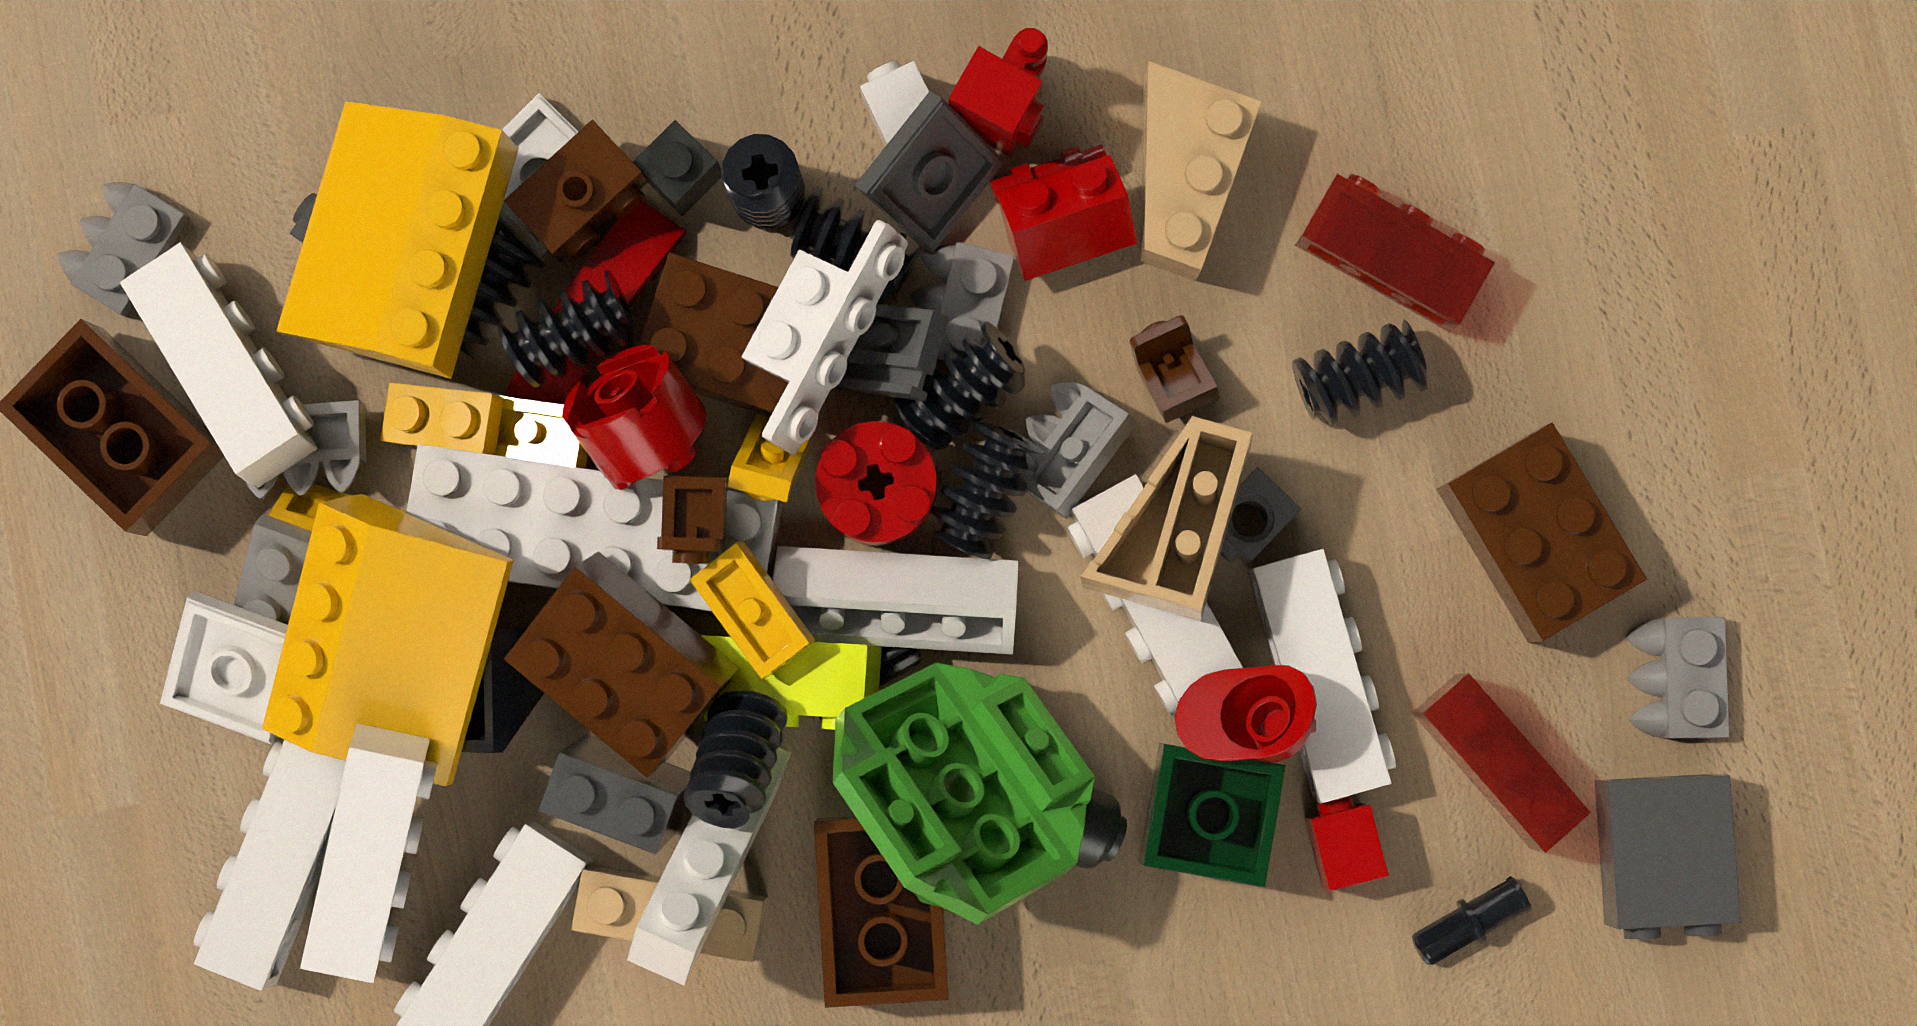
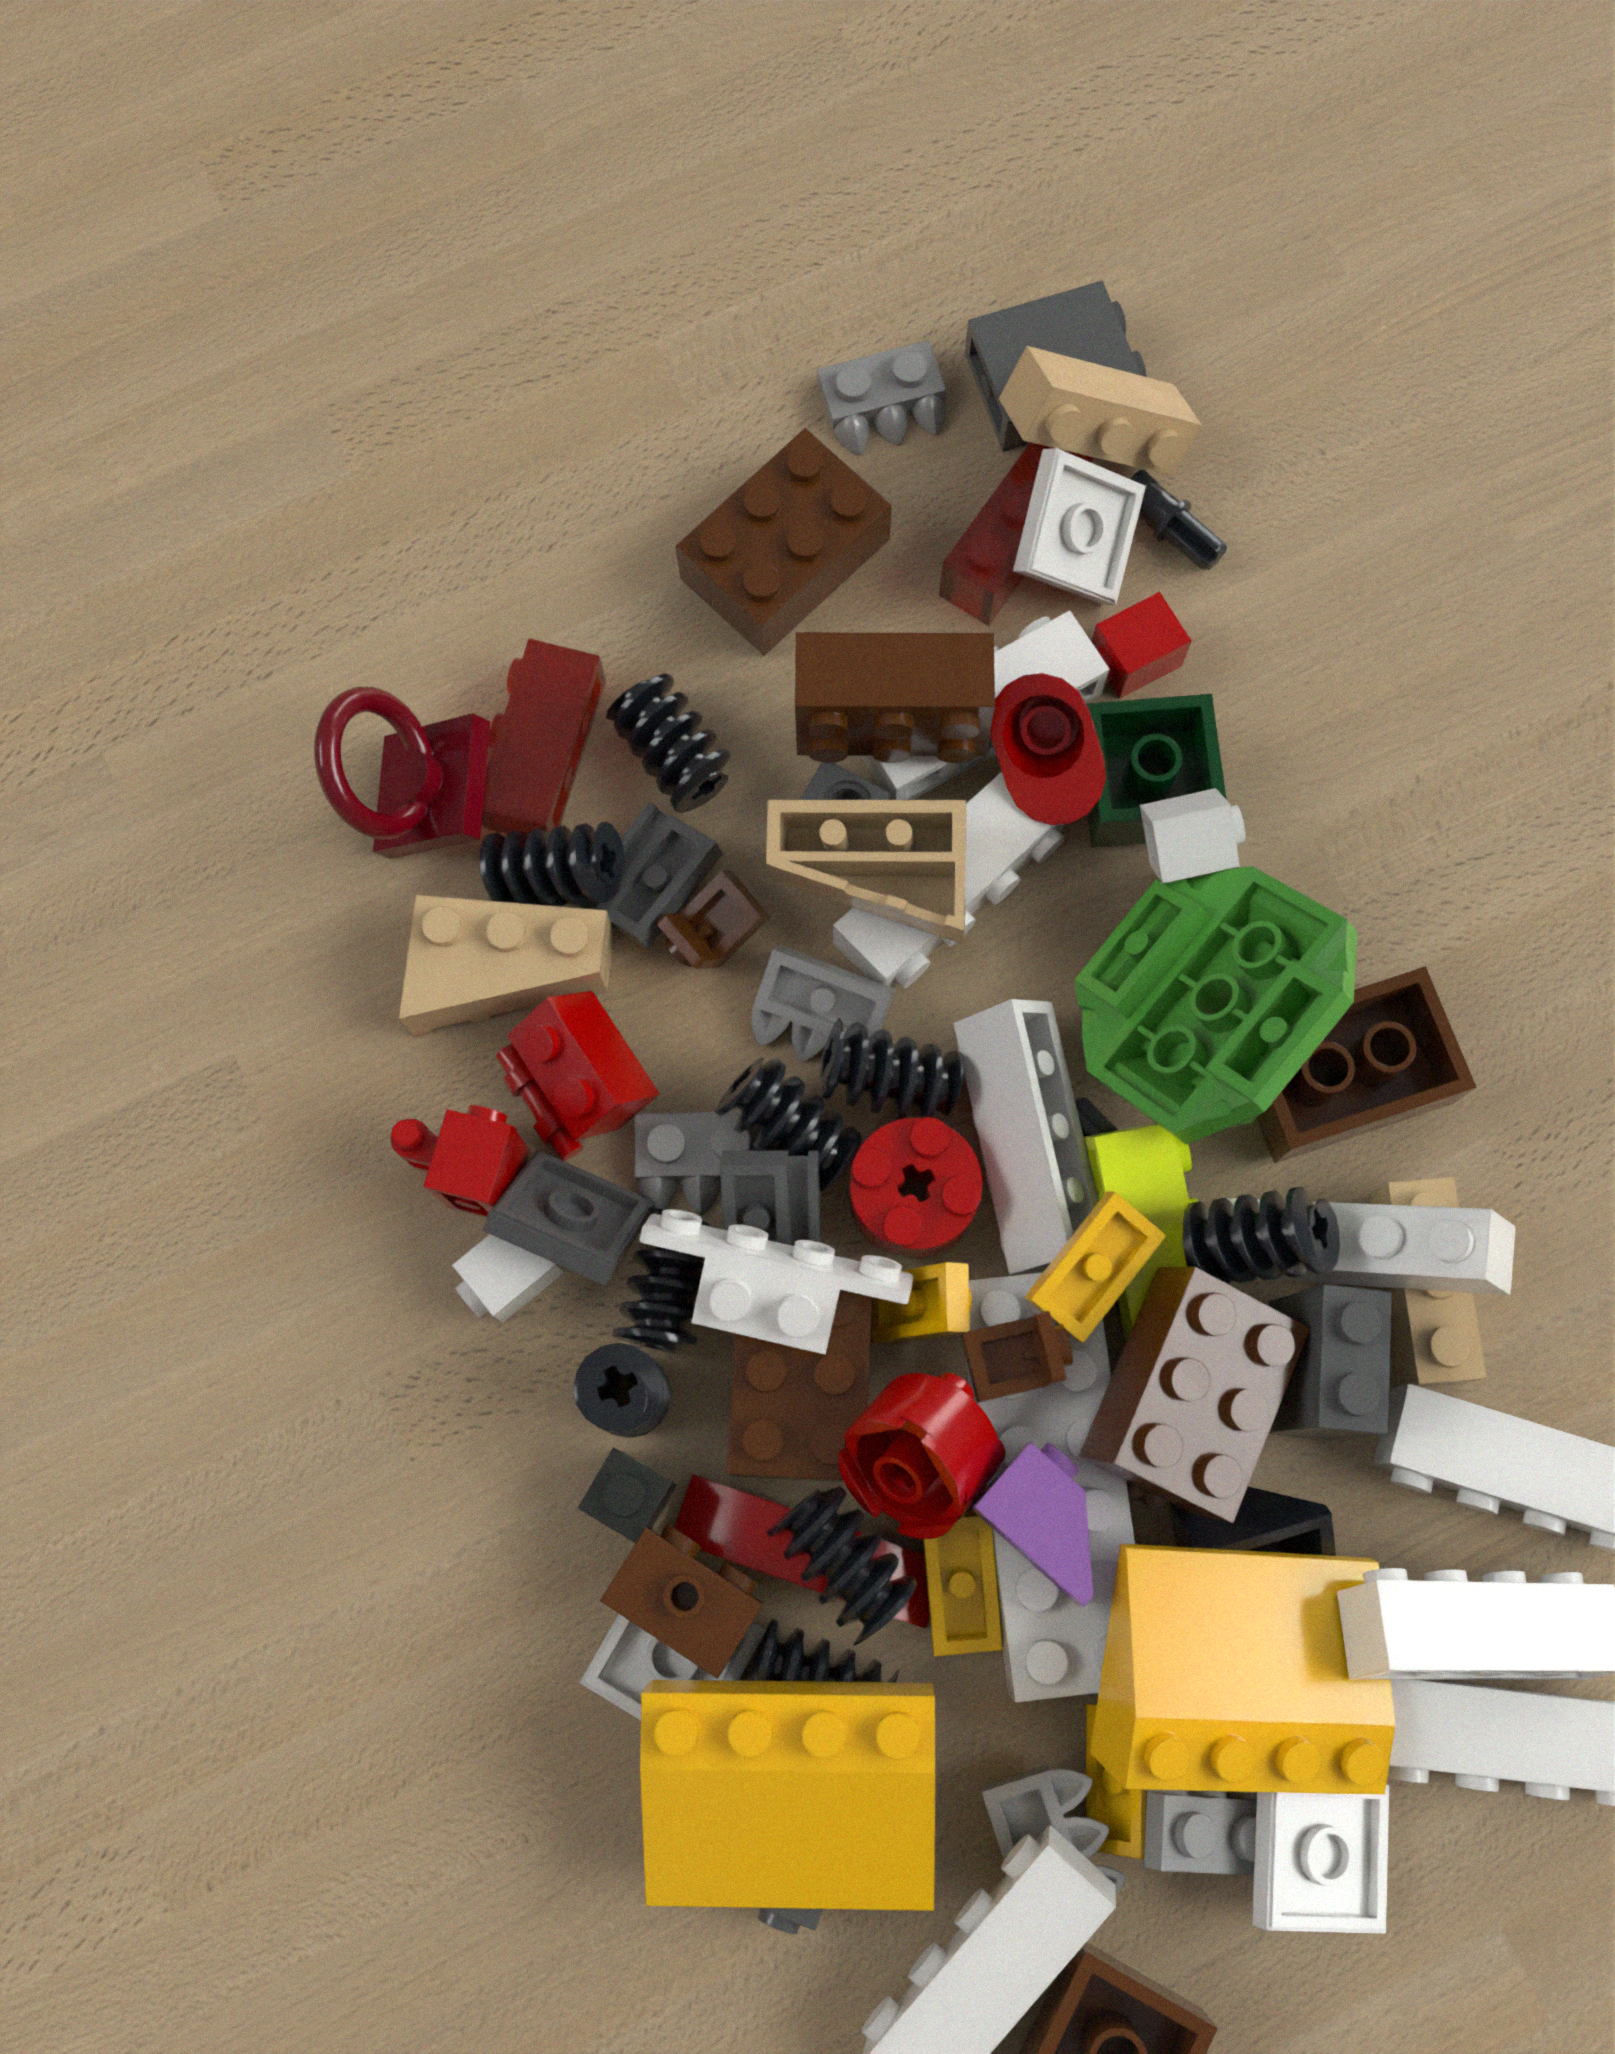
camera: 105 degrees left, 10 degrees down
(442, 418) = (975, 1688): yellow plate -> none
(554, 500) = (1043, 1517): none -> medium lavender slope
(1125, 820) = (1192, 835): none -> white brick
(1237, 322) = (660, 873): none -> dark grey plate
(1262, 232) = (553, 866): none -> black piece
(1328, 576) = (894, 695): none -> reddish brown brick
(1374, 136) = (427, 777): none -> dark red tile
(1475, 818) = (1079, 527): none -> white tile
(1588, 870) = (1099, 411): none -> tan brick

